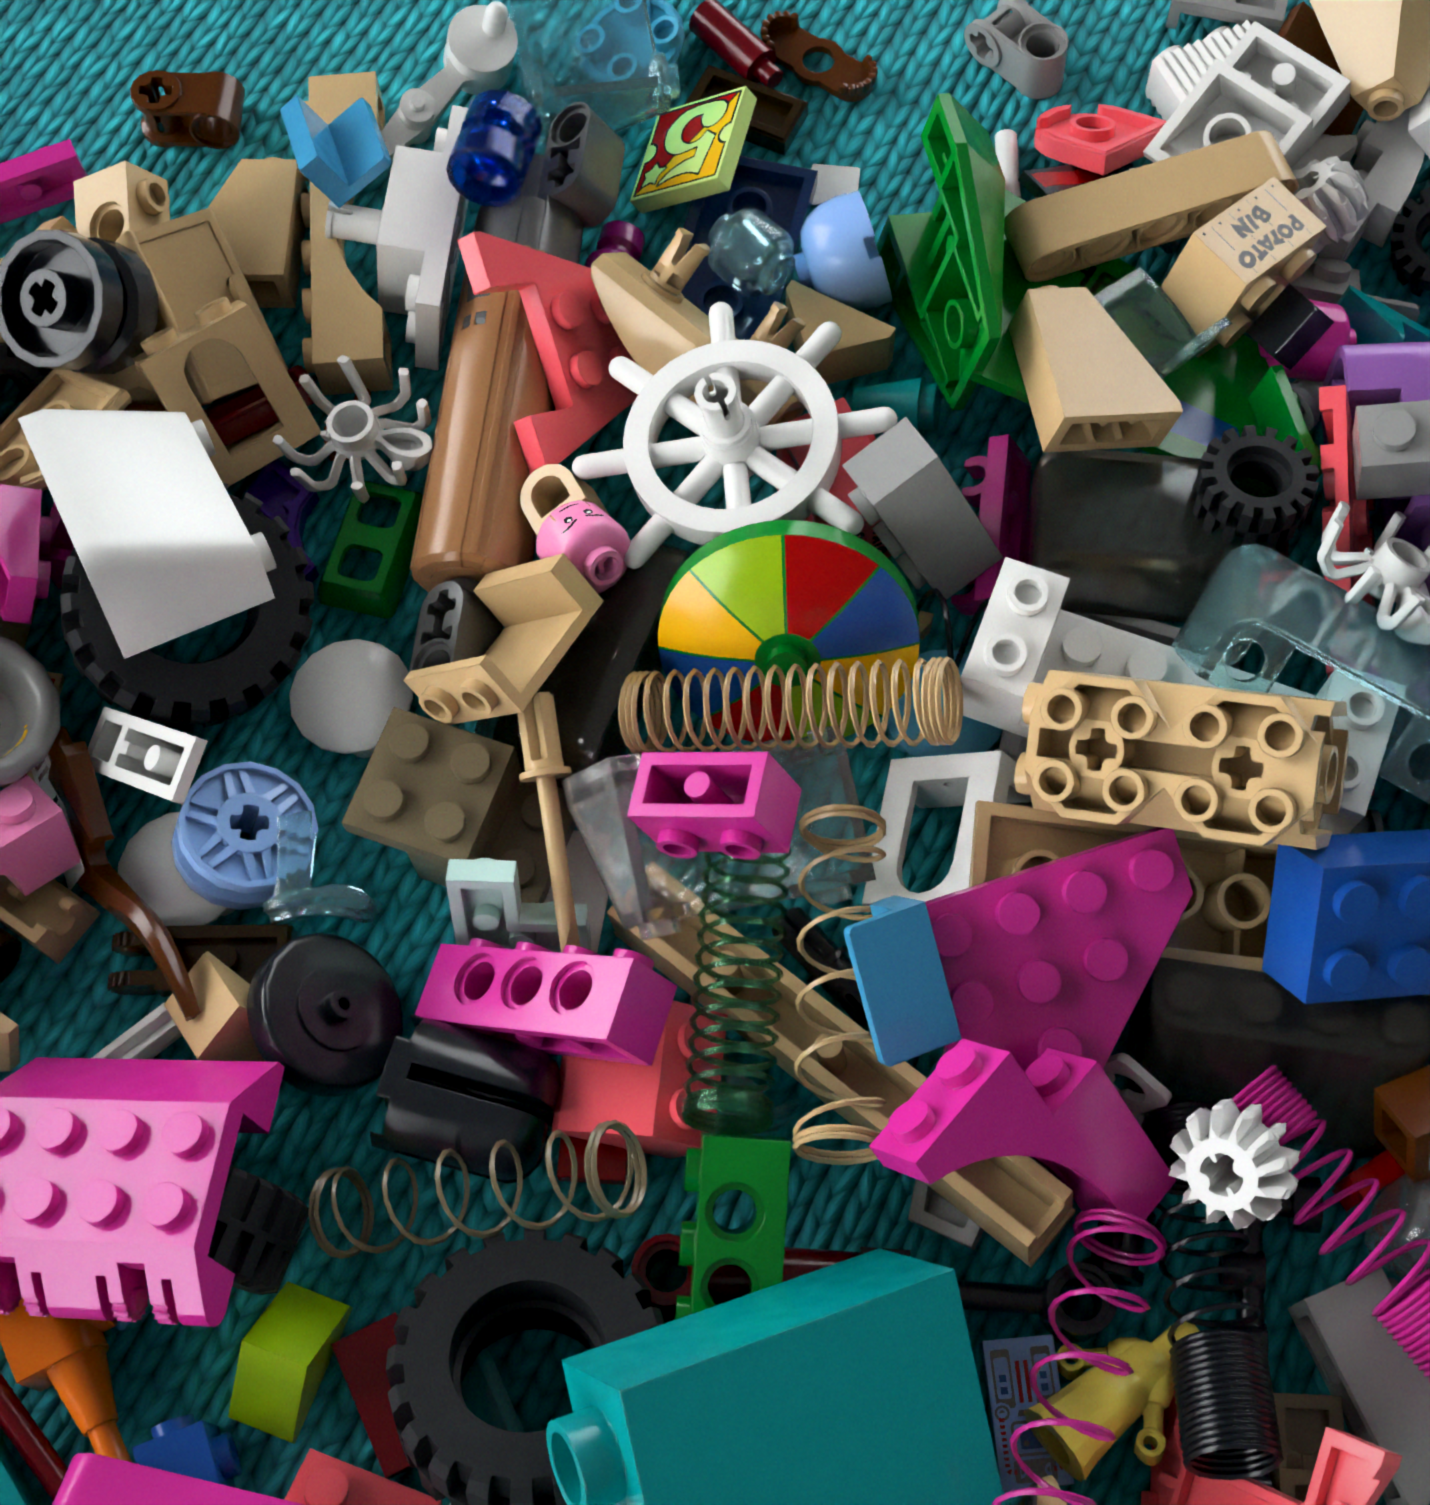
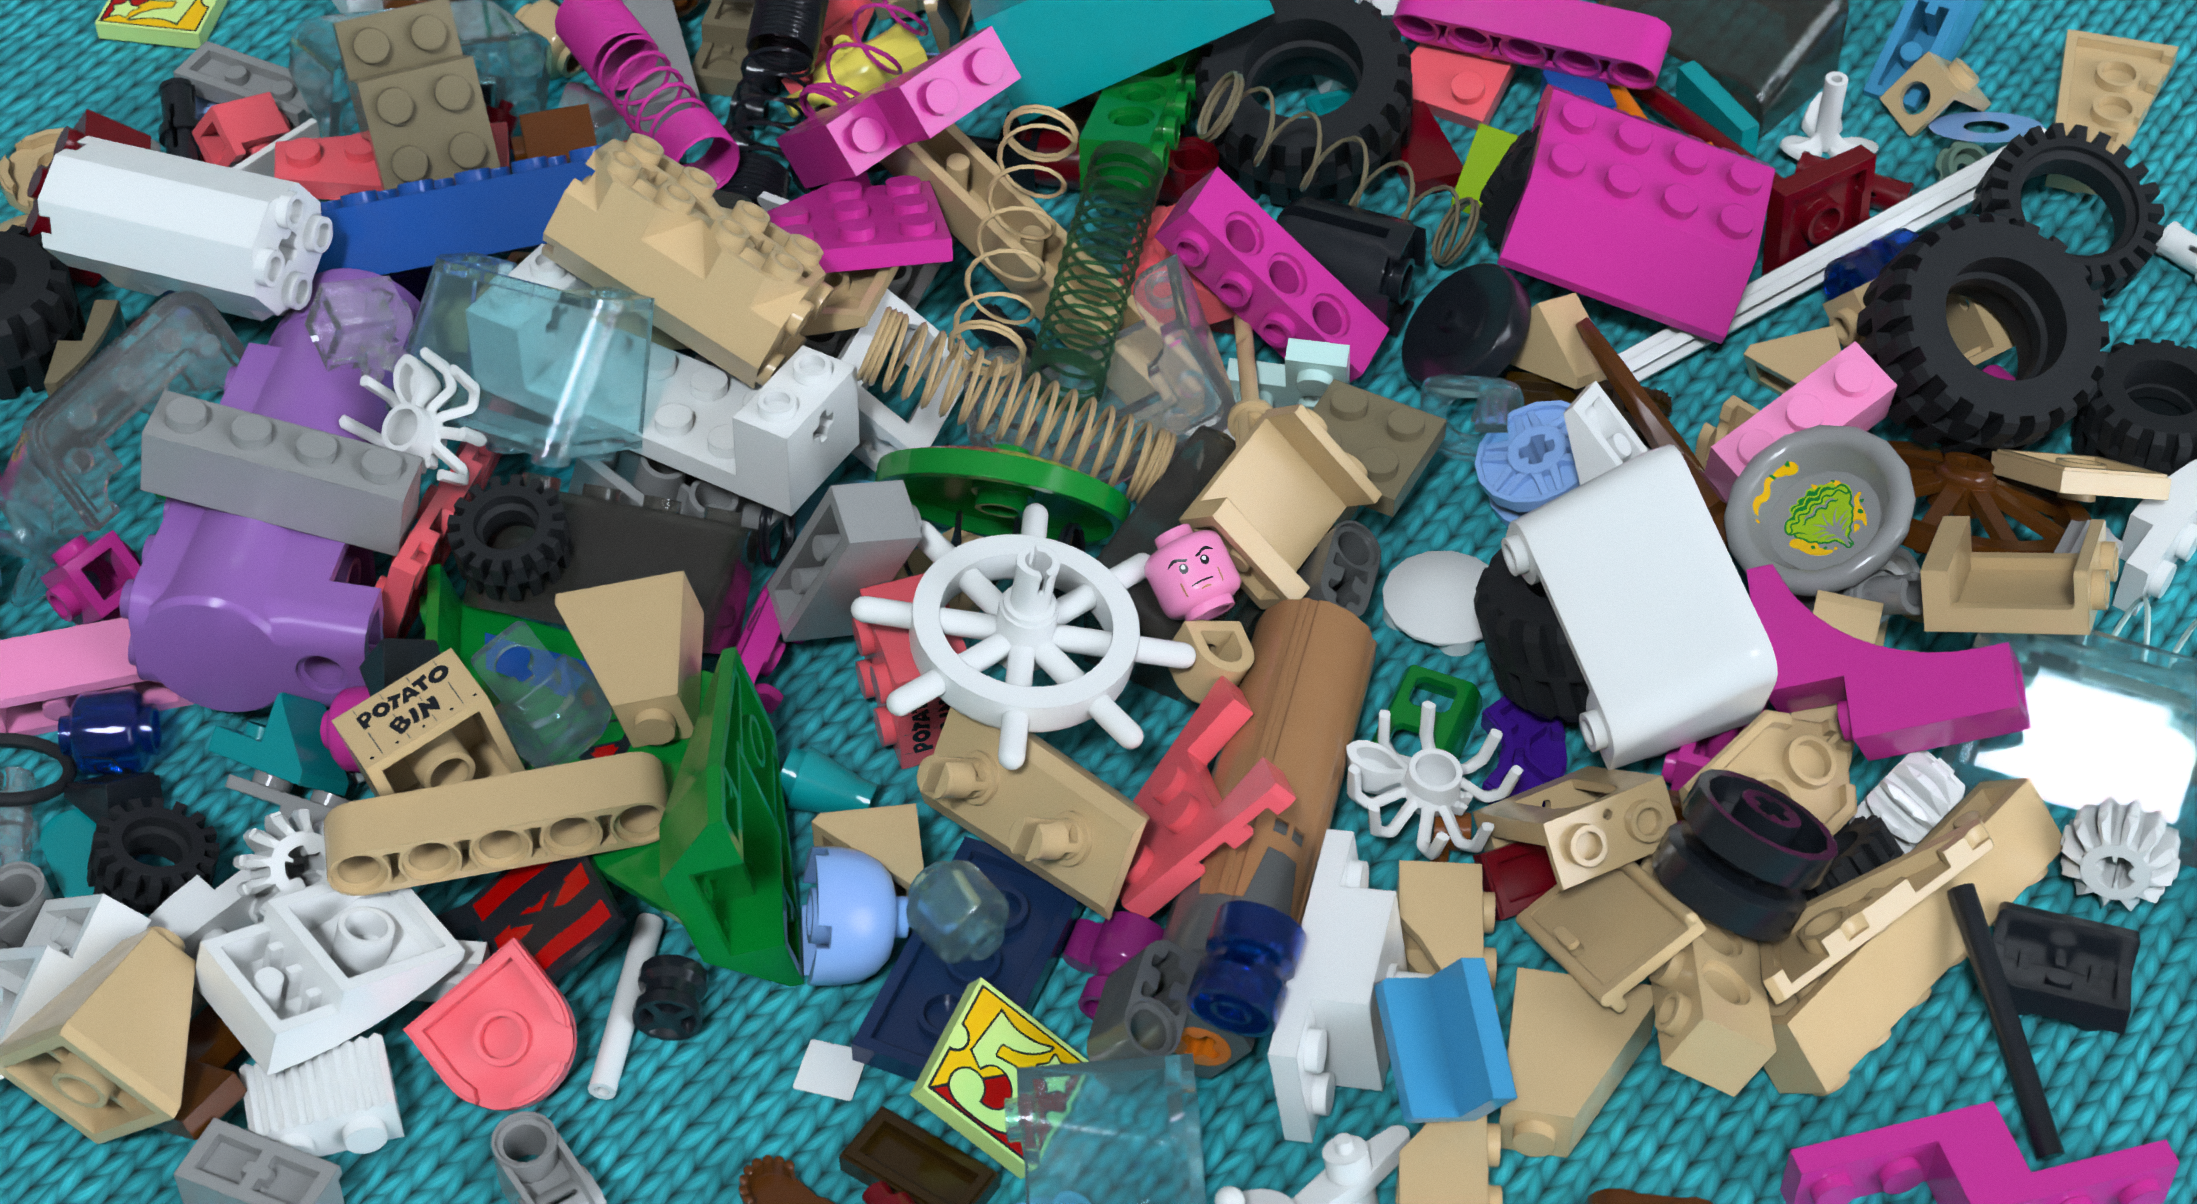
camera: 175 degrees left, 20 degrees down
(715, 803) = (1100, 299): dark pink brick -> none
(901, 980) = (961, 182): dark azure panel -> none
(1234, 1163) = (735, 95): white gear -> none

